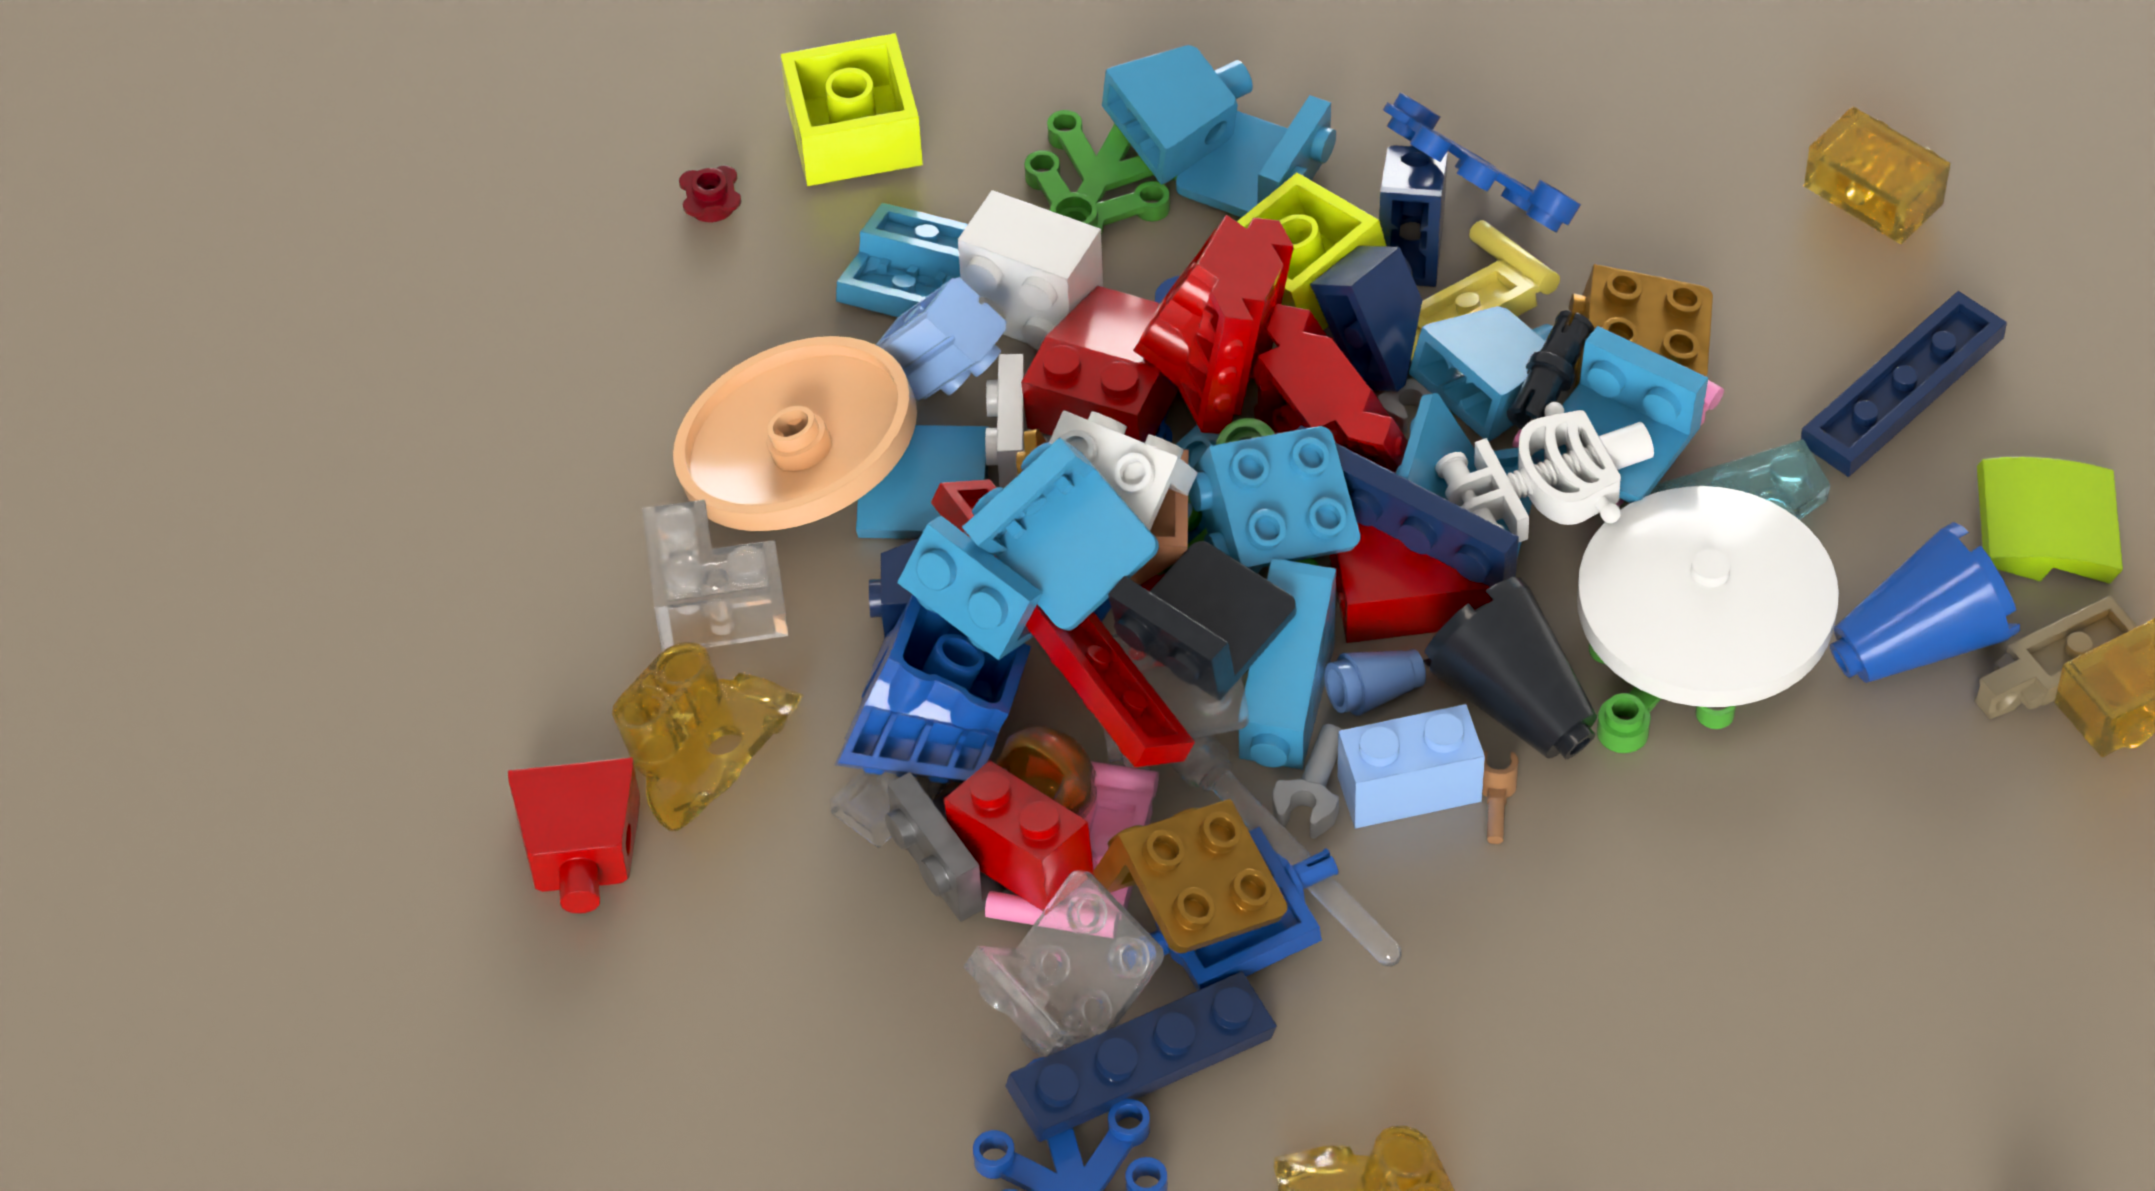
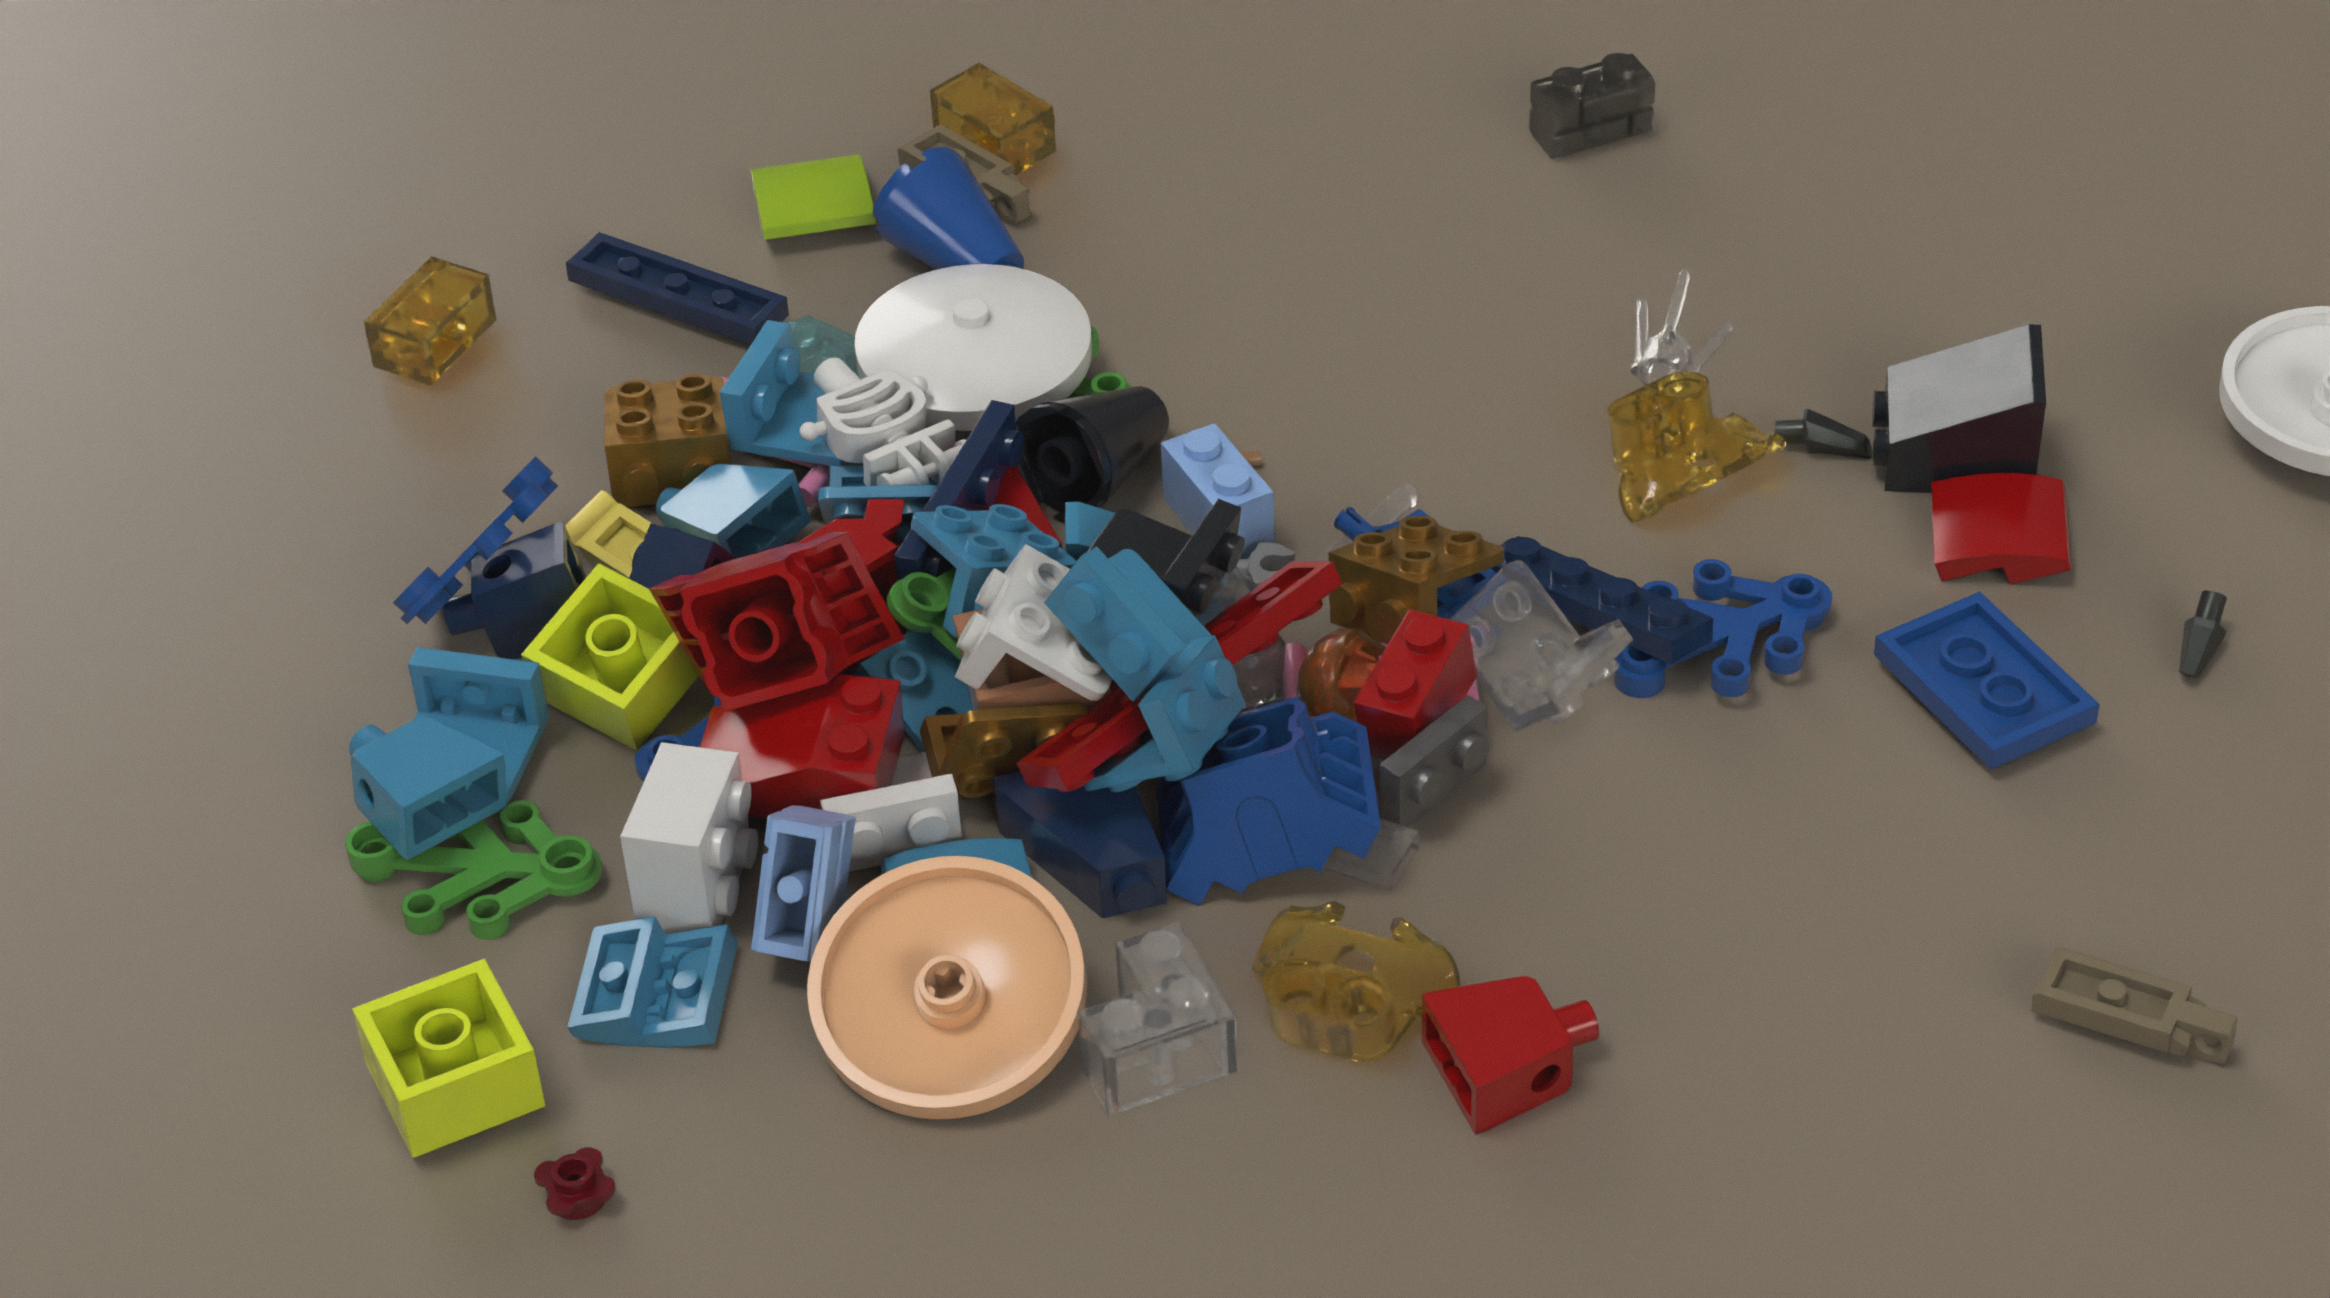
camera: 105 degrees left, 10 degrees down
(1551, 368) = (754, 445): black pin -> none

